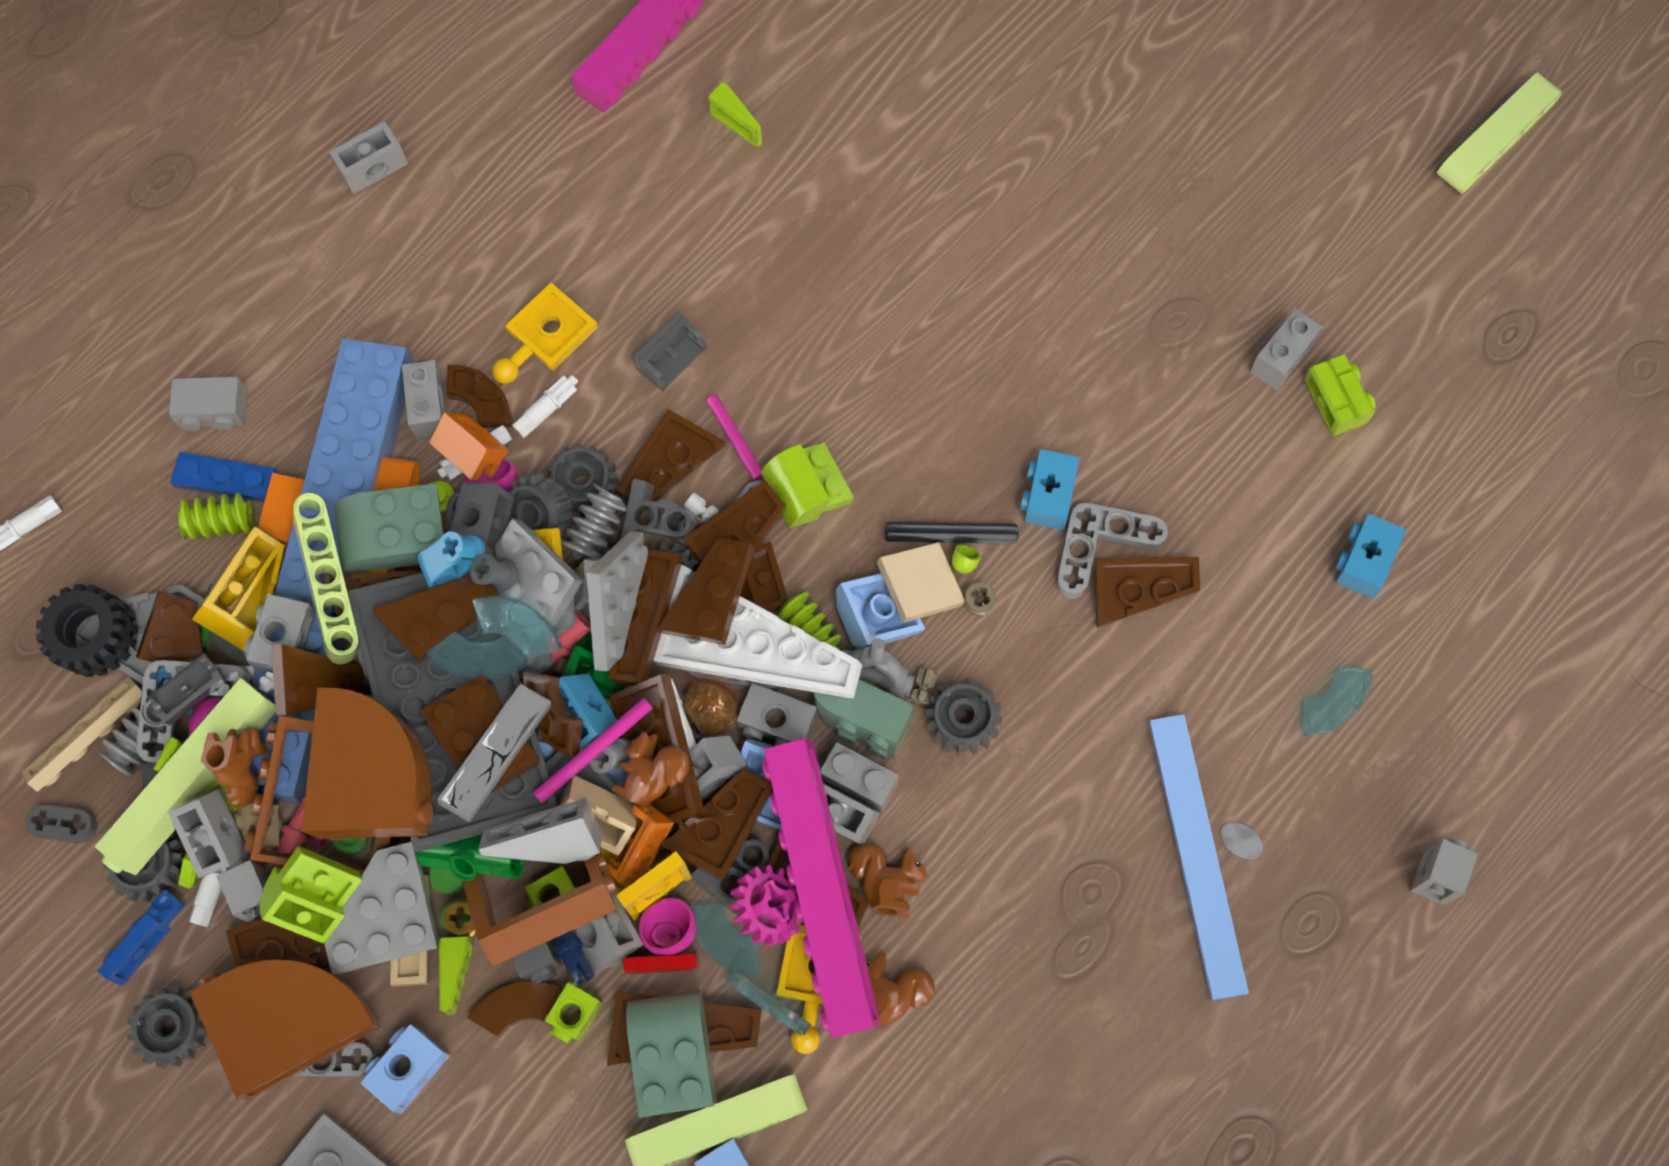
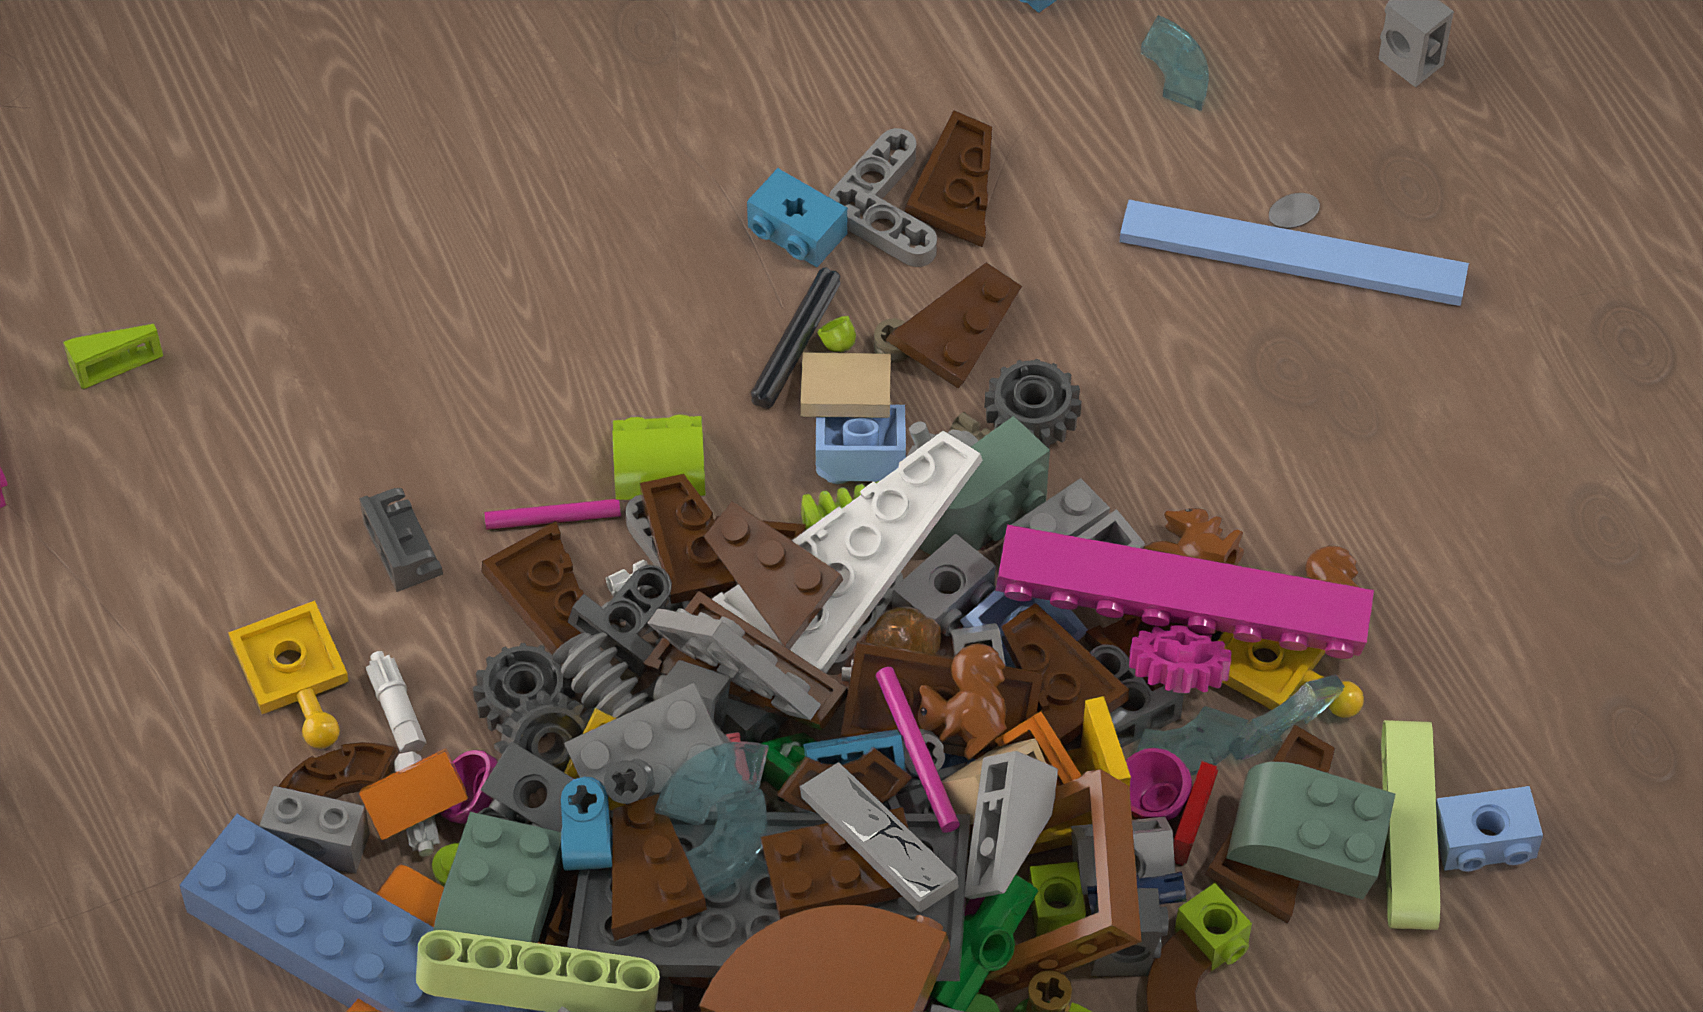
camera: 70 degrees left, 15 degrees down
(1011, 638) = (958, 324): none -> reddish brown wing

